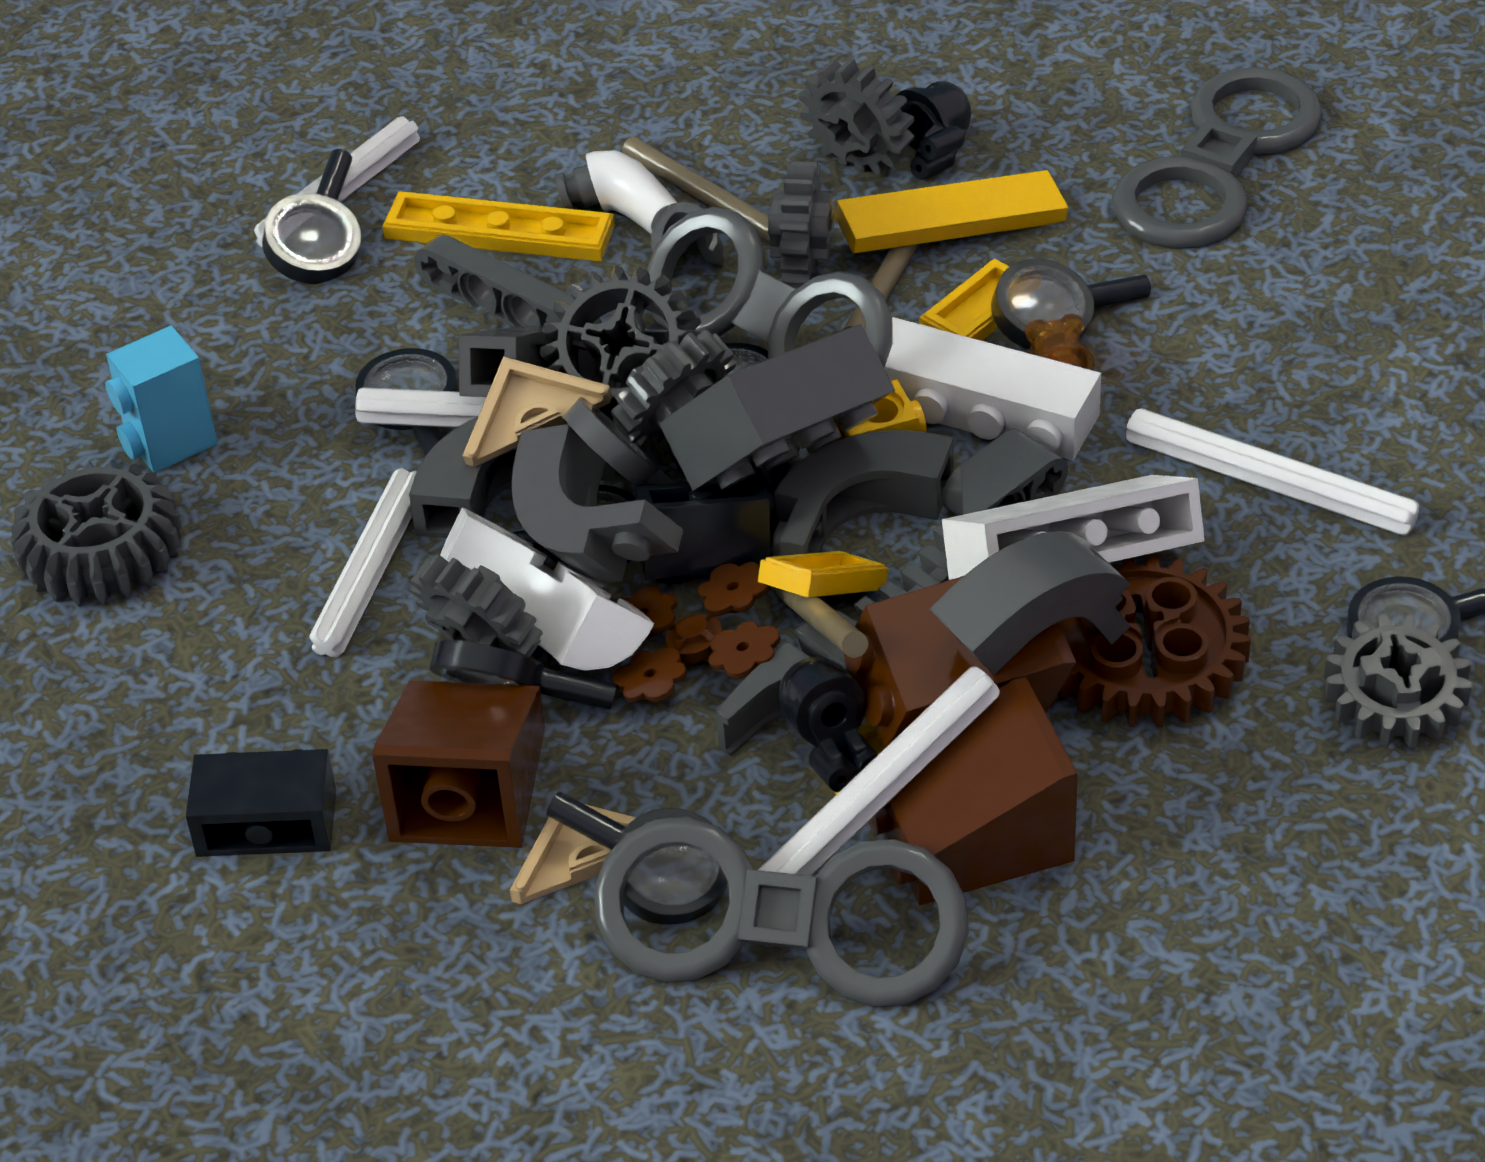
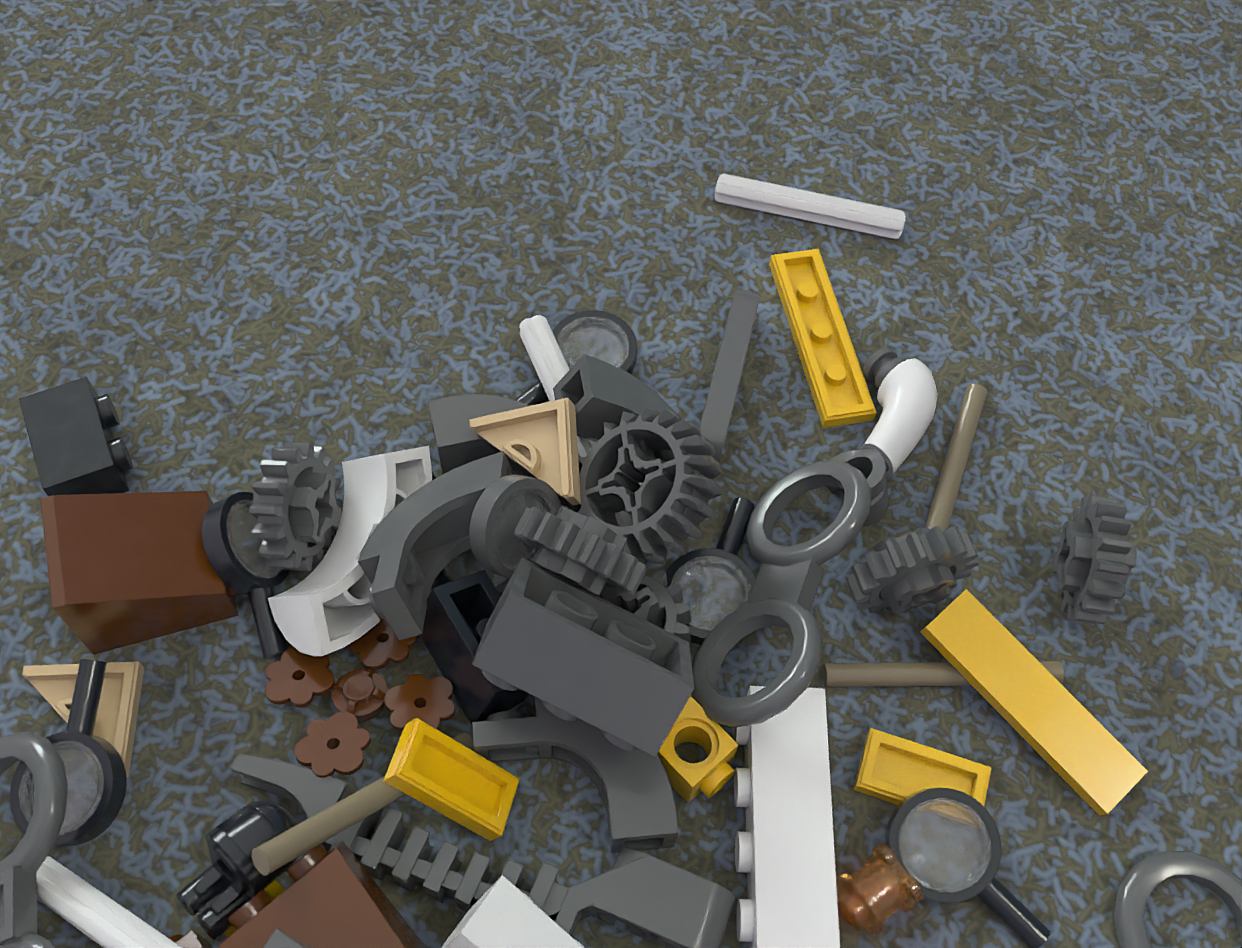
camera: 60 degrees right, 15 degrees up
(98, 541) = (339, 218): dark grey gear -> none
(160, 399) = (471, 191): medium azure brick -> none
(312, 233) = (731, 211): piece -> none
(364, 567) = (363, 407): white axle -> none
(939, 125) = (1151, 631): black piece -> none

